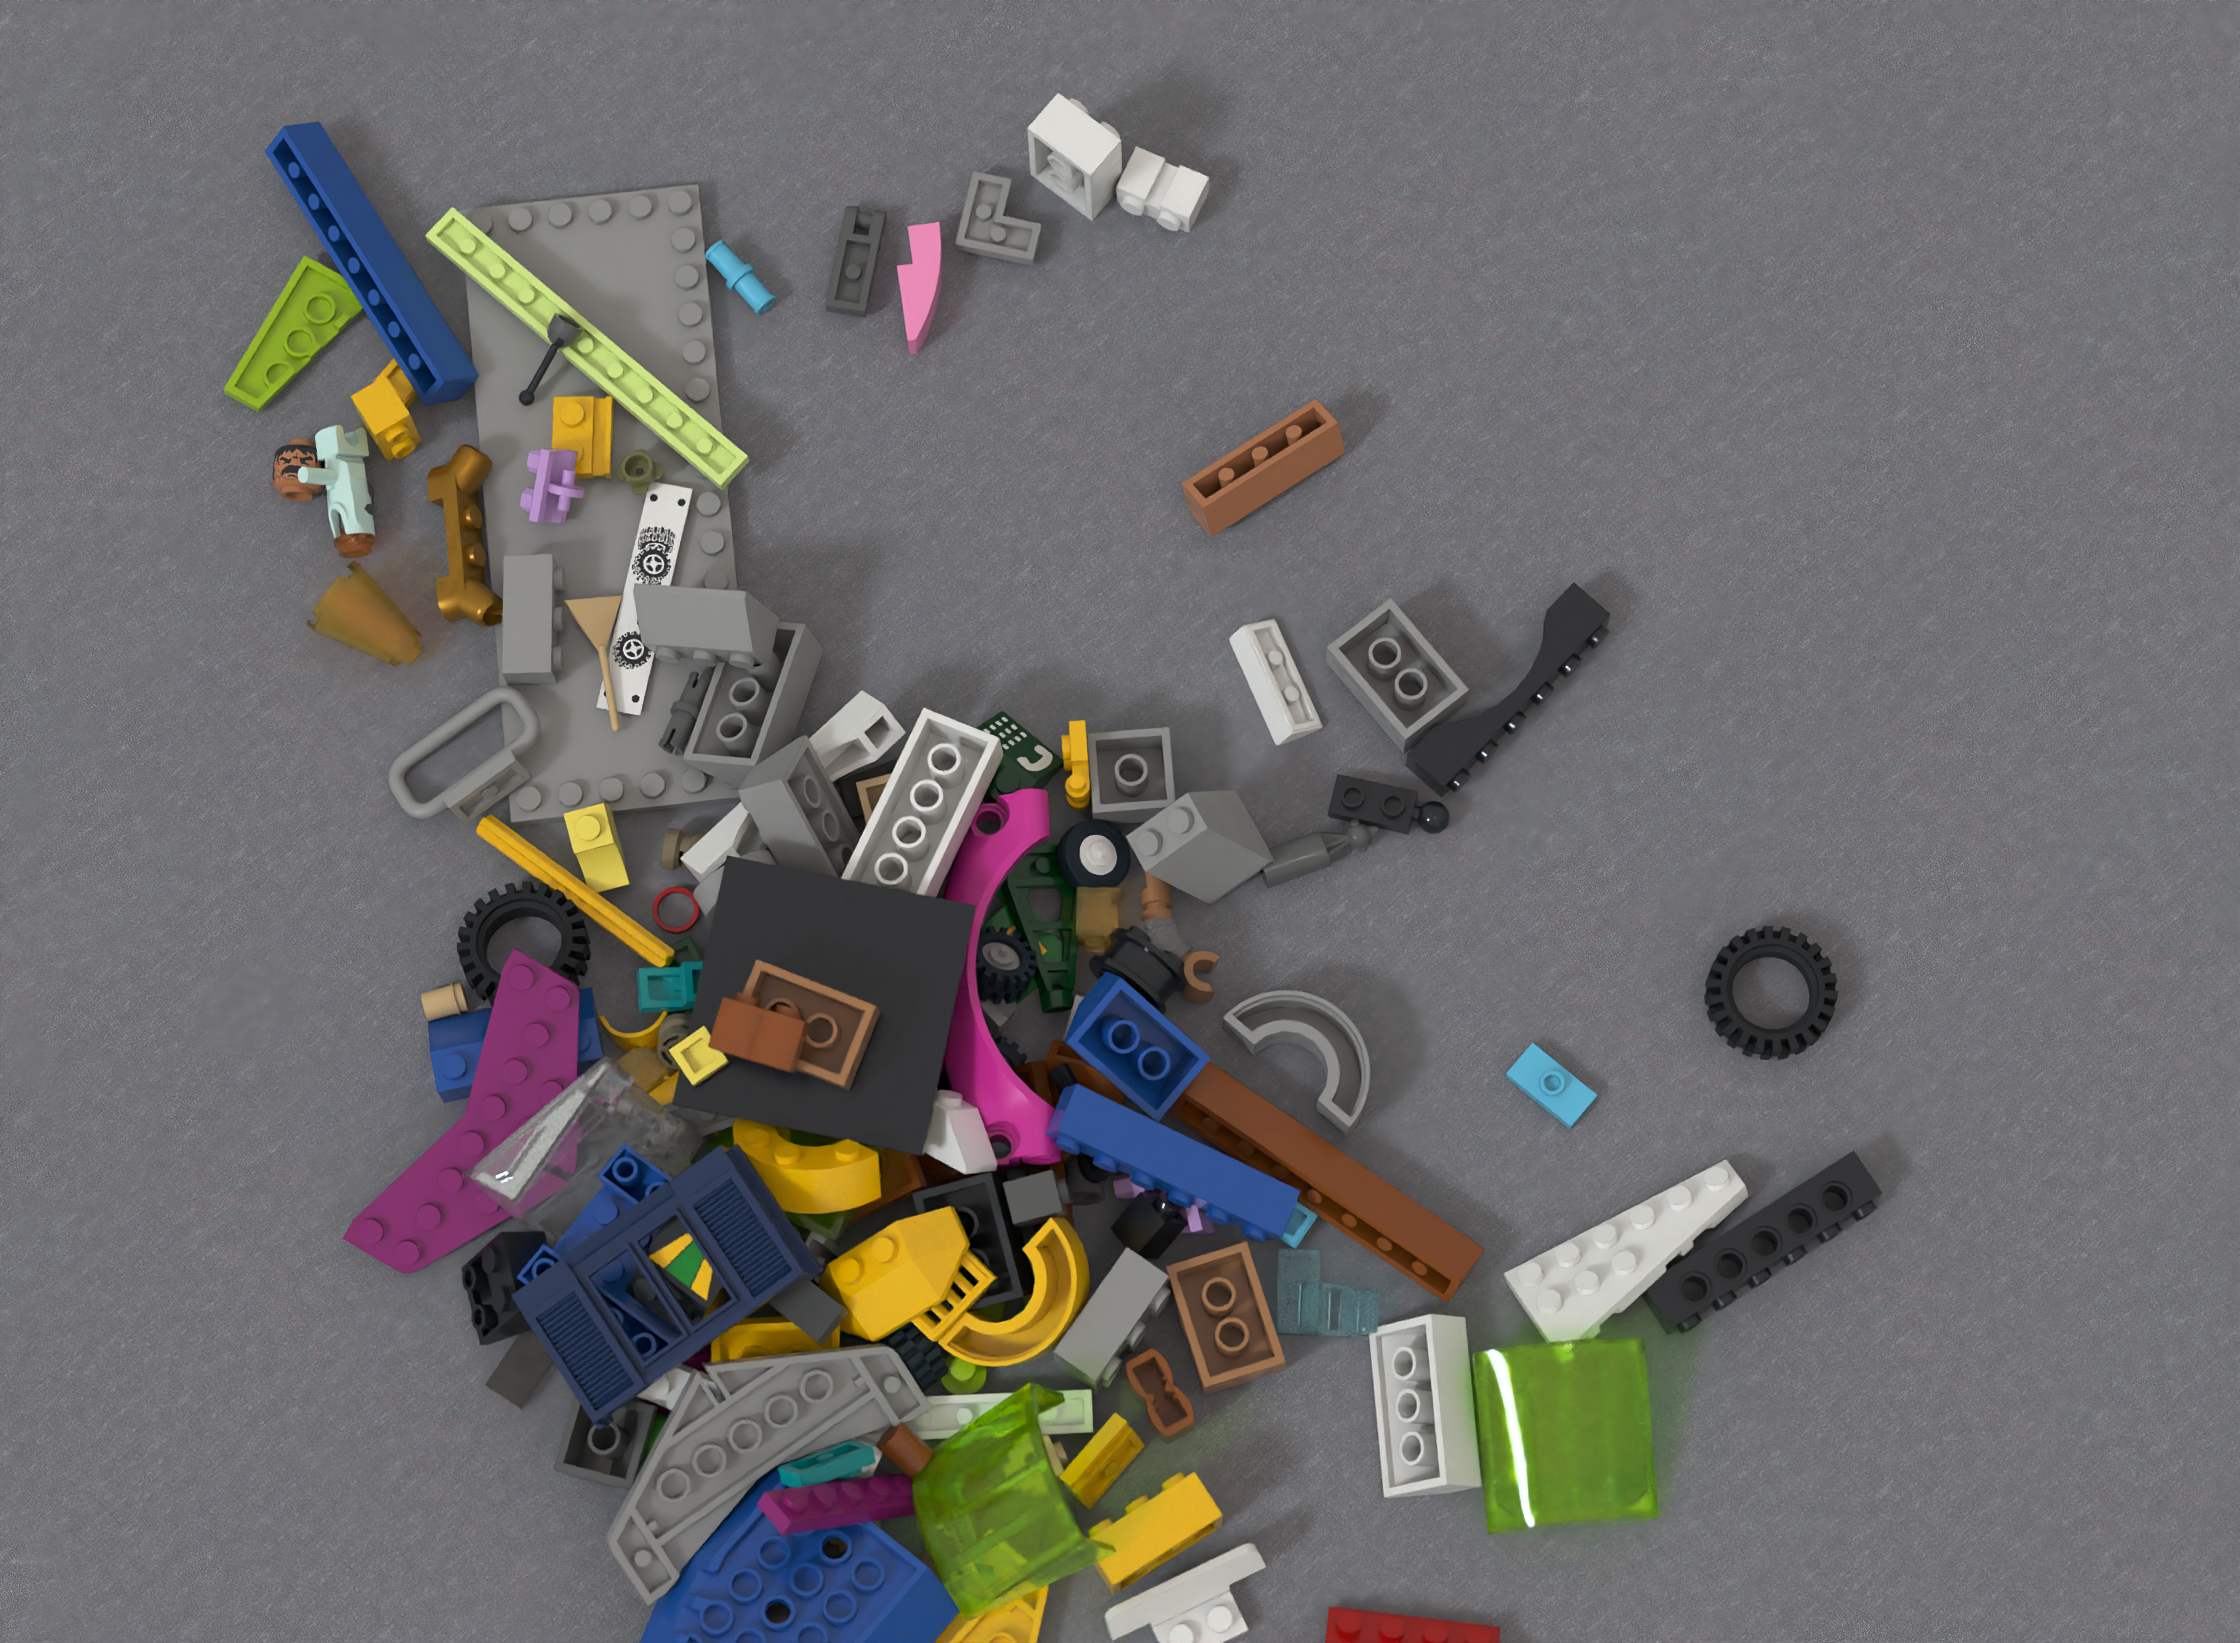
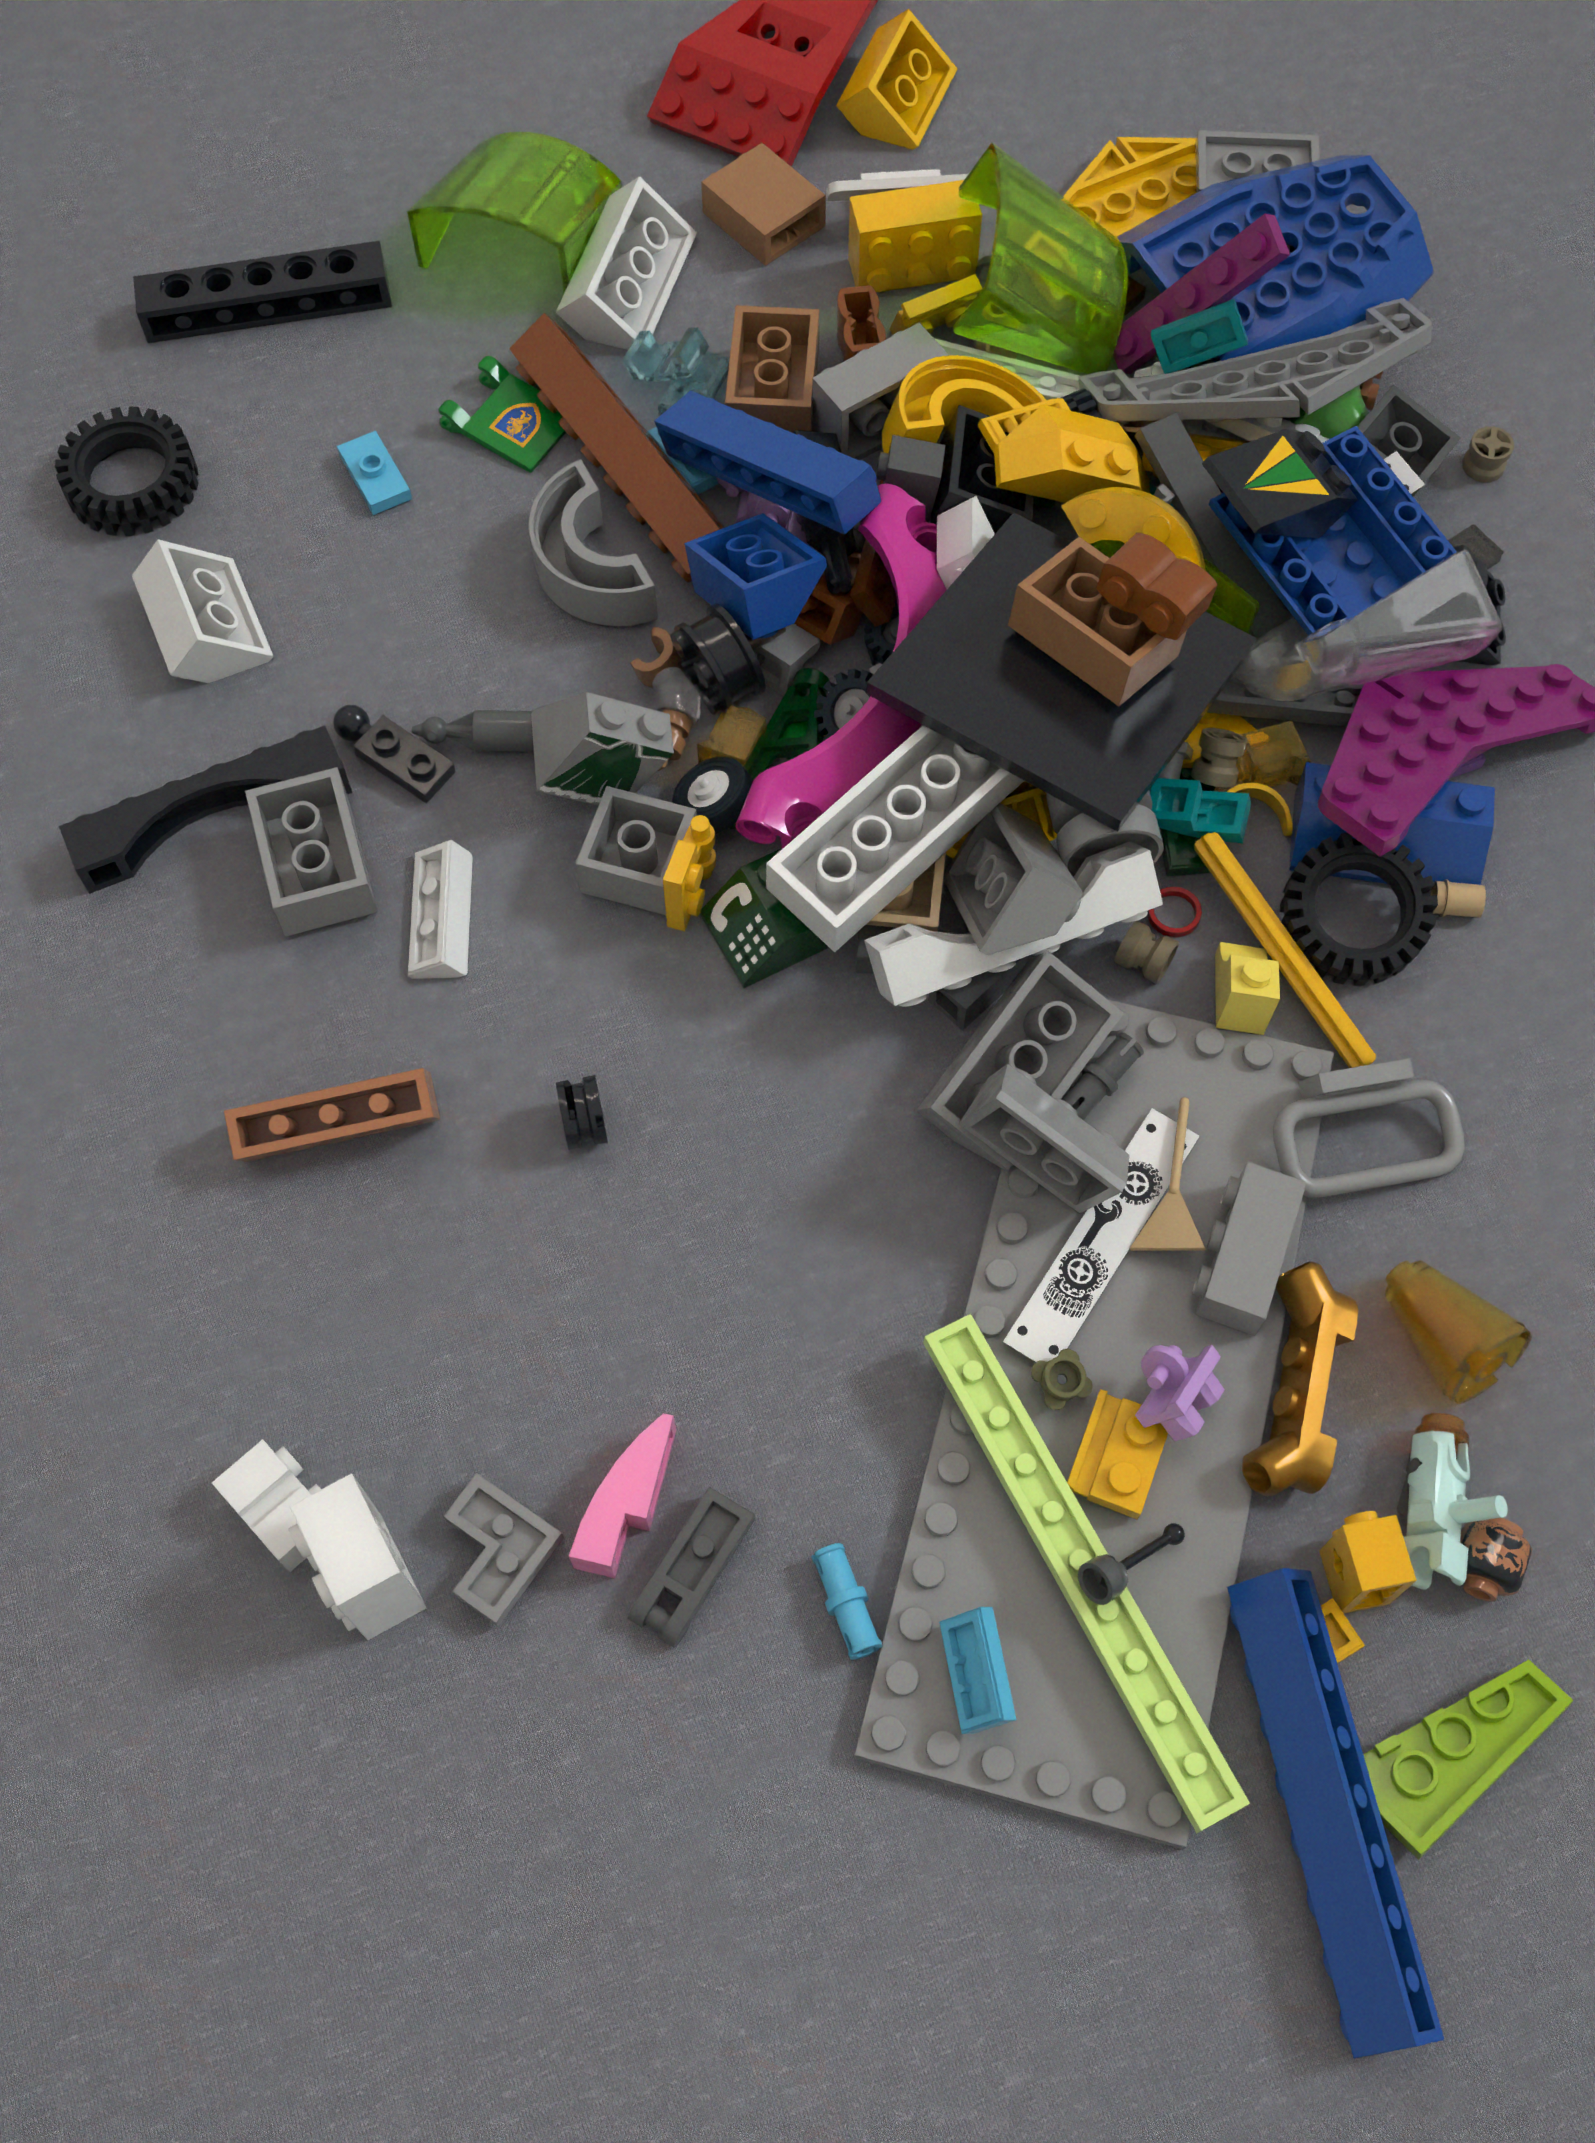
camera: 160 degrees left, 10 degrees down
(523, 1489) = (1488, 454): none -> dark tan wheel
(632, 252) = (977, 1670): none -> medium azure plate
(697, 1058) = (1217, 650): light yellow plate -> none
(737, 1232) = (1235, 485): dark blue piece -> none
(905, 1449) = (1113, 355): dark orange piece -> none
(1077, 544) = (588, 1119): none -> black wheel
(1329, 1545) = (763, 204): none -> medium nougat brick
(1459, 1191) = (509, 421): none -> green flag
(1612, 1264) = (410, 306): white wing -> none
(1617, 870) = (200, 613): none -> white slope

